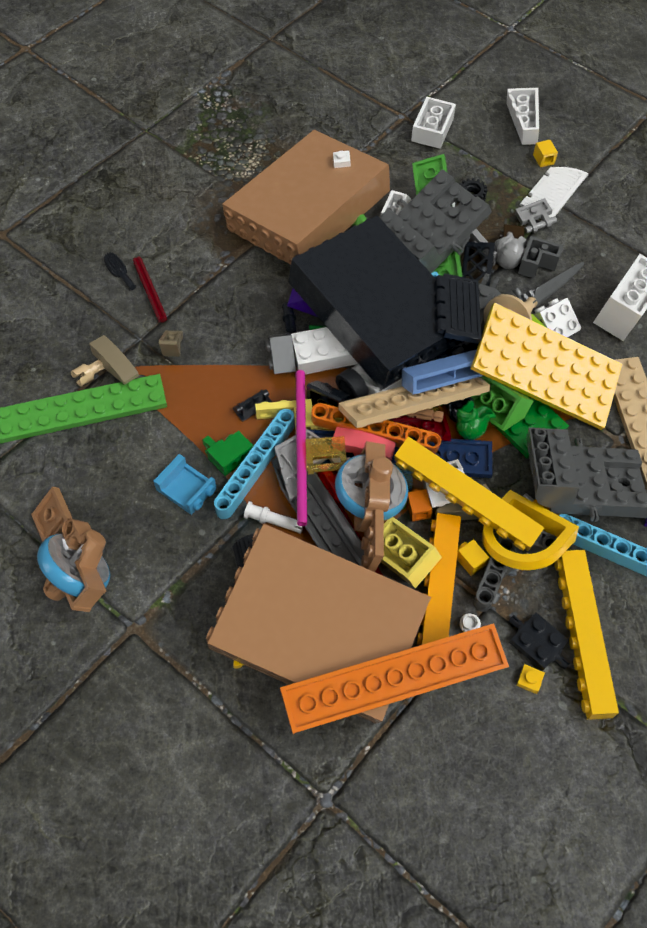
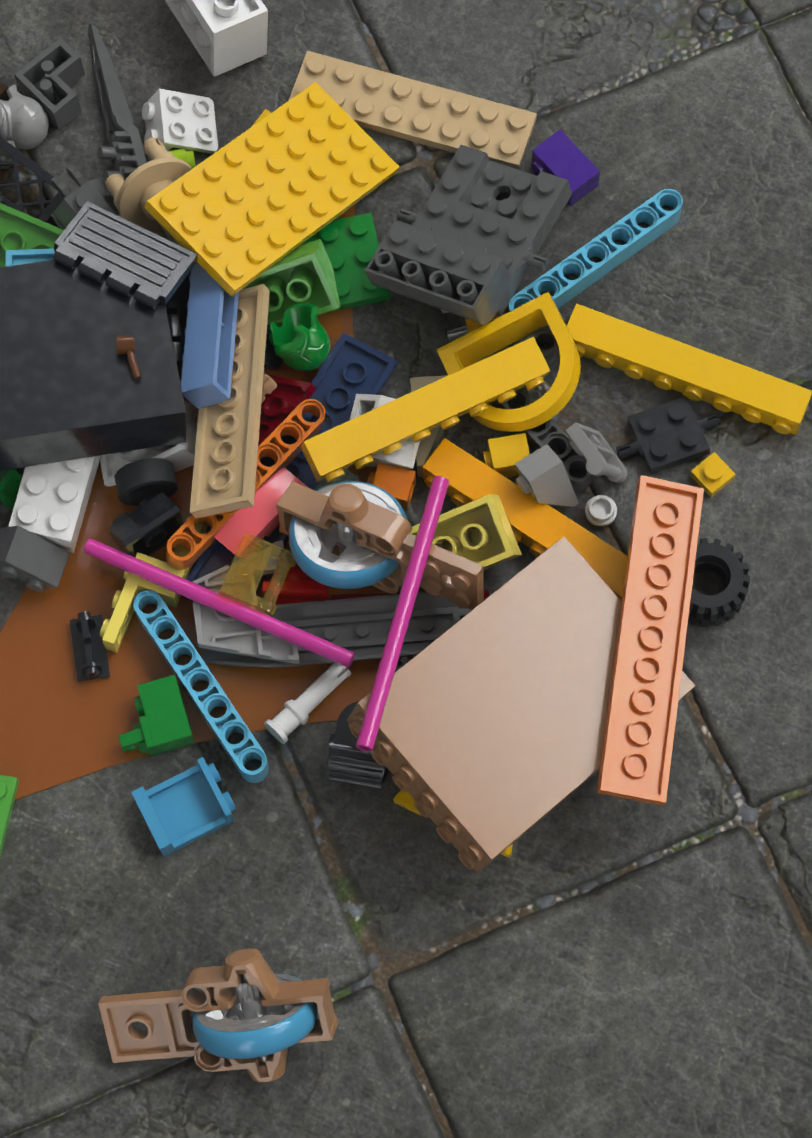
camera: 60 degrees left, 10 degrees up
(328, 524) = (402, 614): none -> dark pink piece
(407, 326) = (126, 345): none -> reddish brown hand
(452, 721) = (735, 575): none -> black tyre
(466, 579) = (545, 478): none -> light grey slope
(504, 597) = (597, 451): none -> light grey plate

